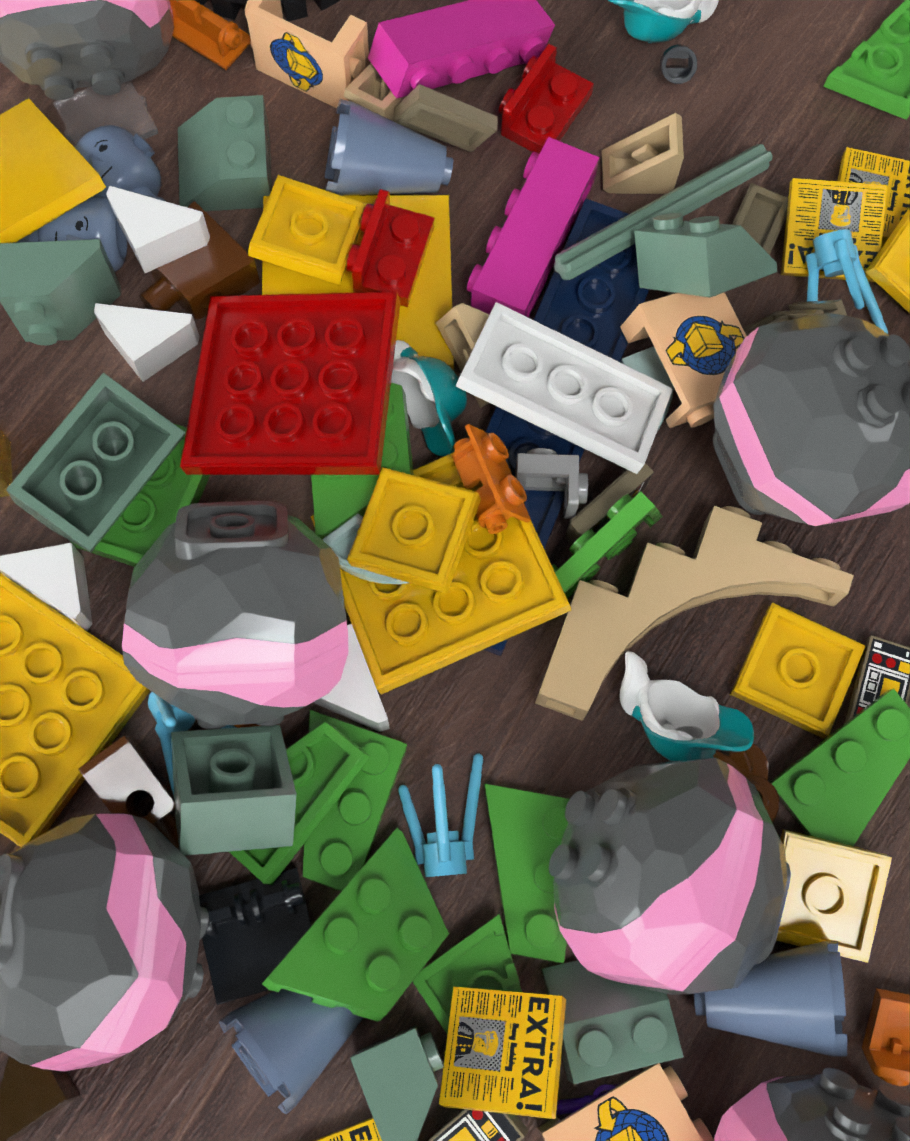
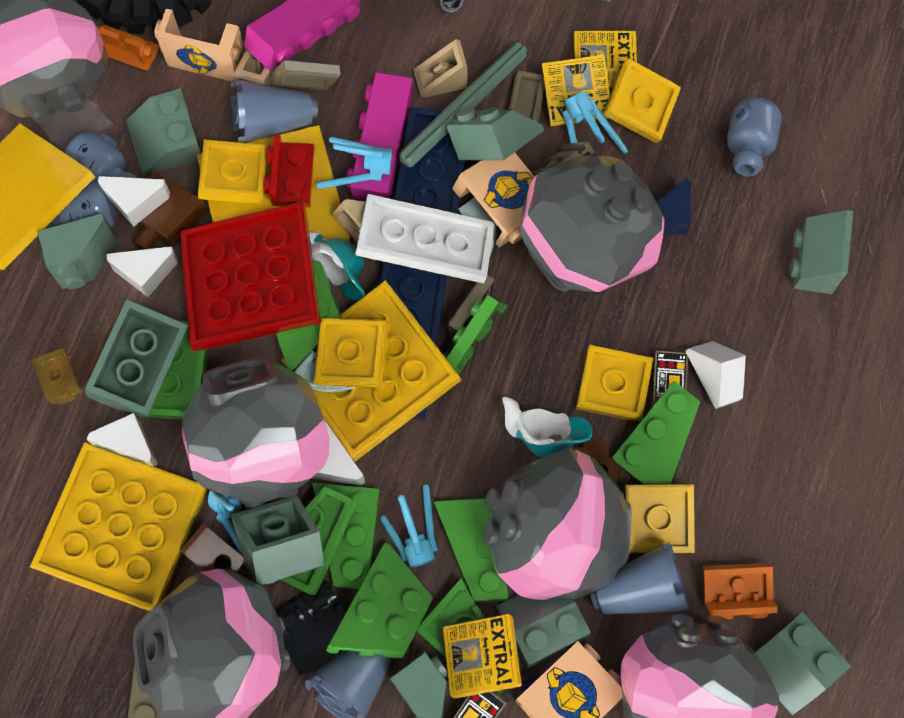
camera: 10 degrees left, 0 degrees up
(484, 460) = (383, 298): orange hinge -> none
(520, 259) = (376, 160): none -> medium azure plant
(543, 102) = (367, 46): red bracket -> none
(546, 471) = (426, 295): light grey bracket -> none
(667, 582) = (518, 350): tan arch -> none

